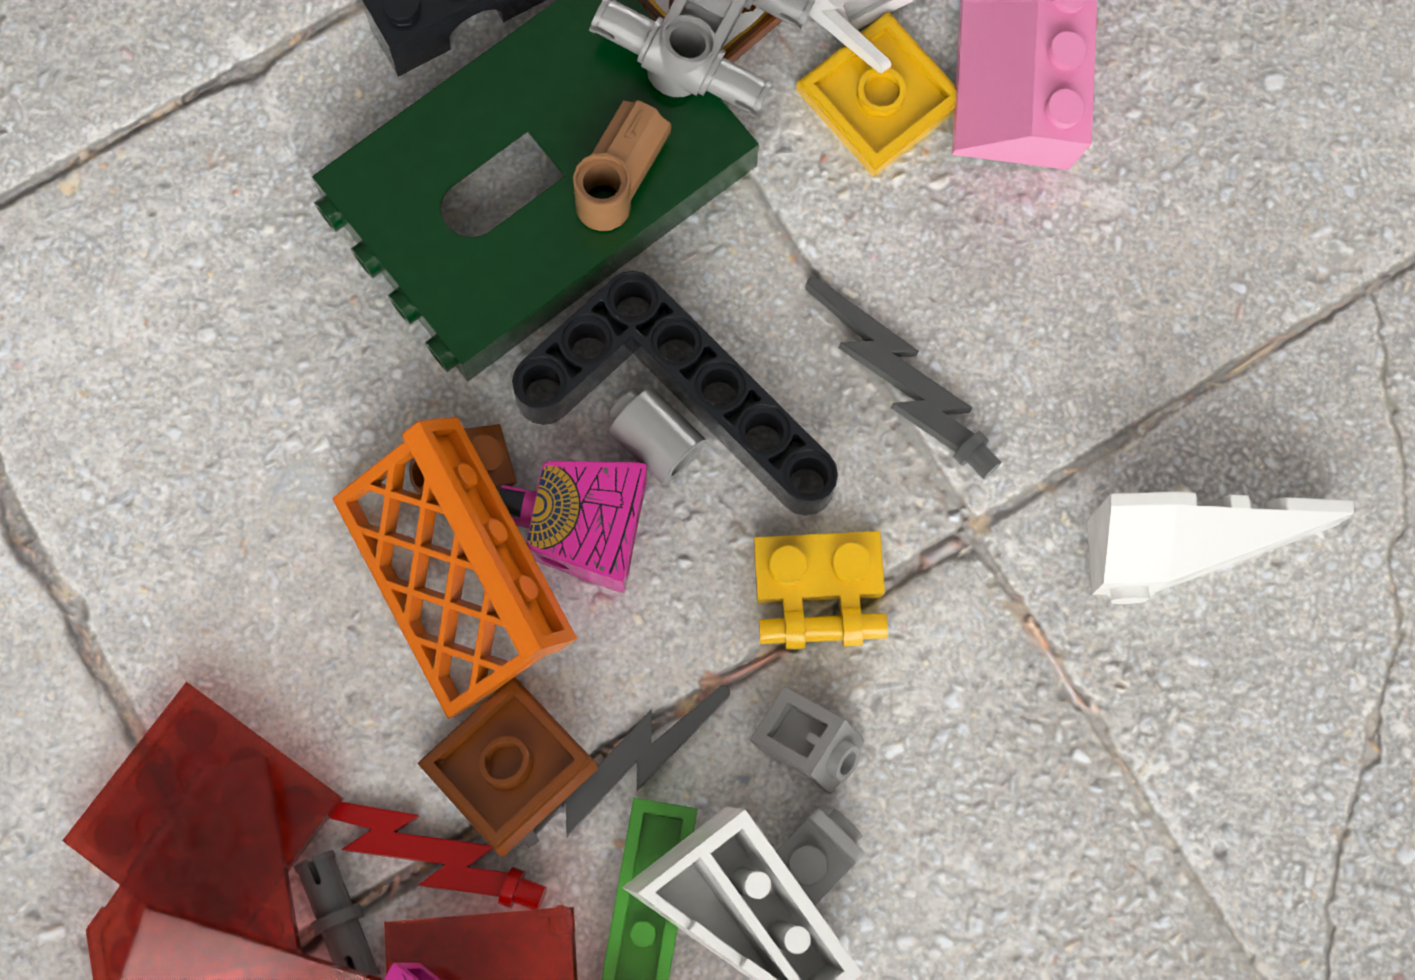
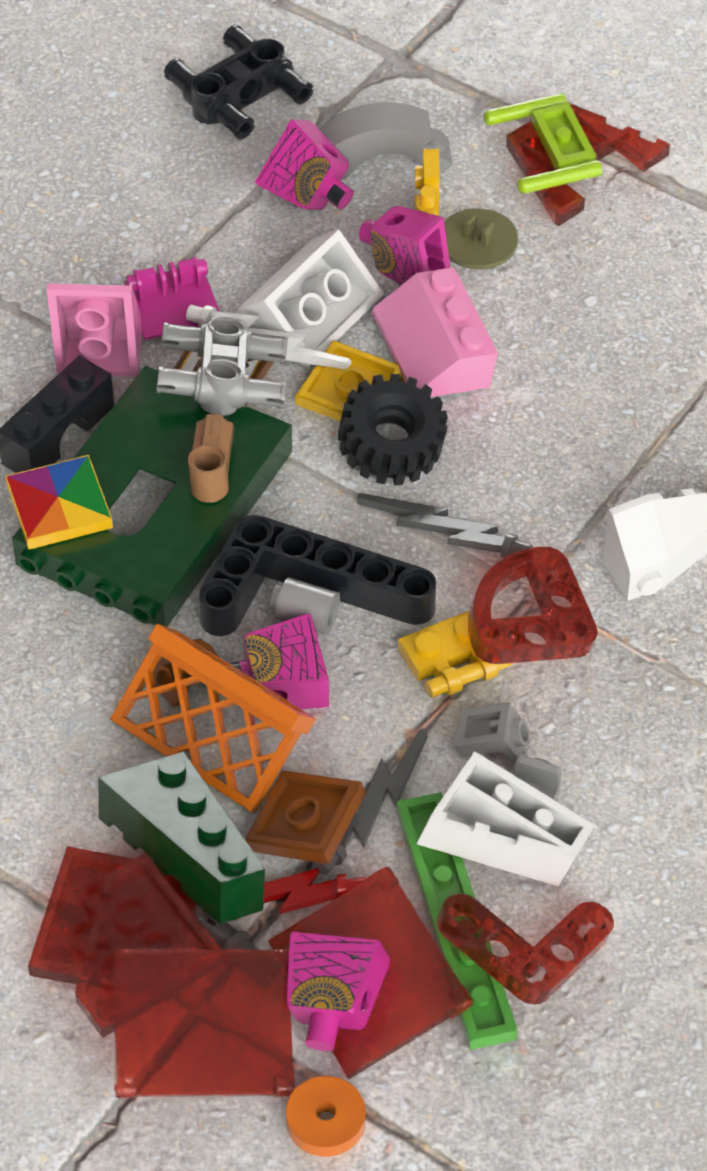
camera: 20 degrees left, 25 degrees down
(329, 725) = (186, 833): none -> dark green wedge
(391, 148) = (58, 502): none -> tile
(924, 165) = (395, 404): none -> black tyre
(980, 595) = (551, 625): none -> clear red beam

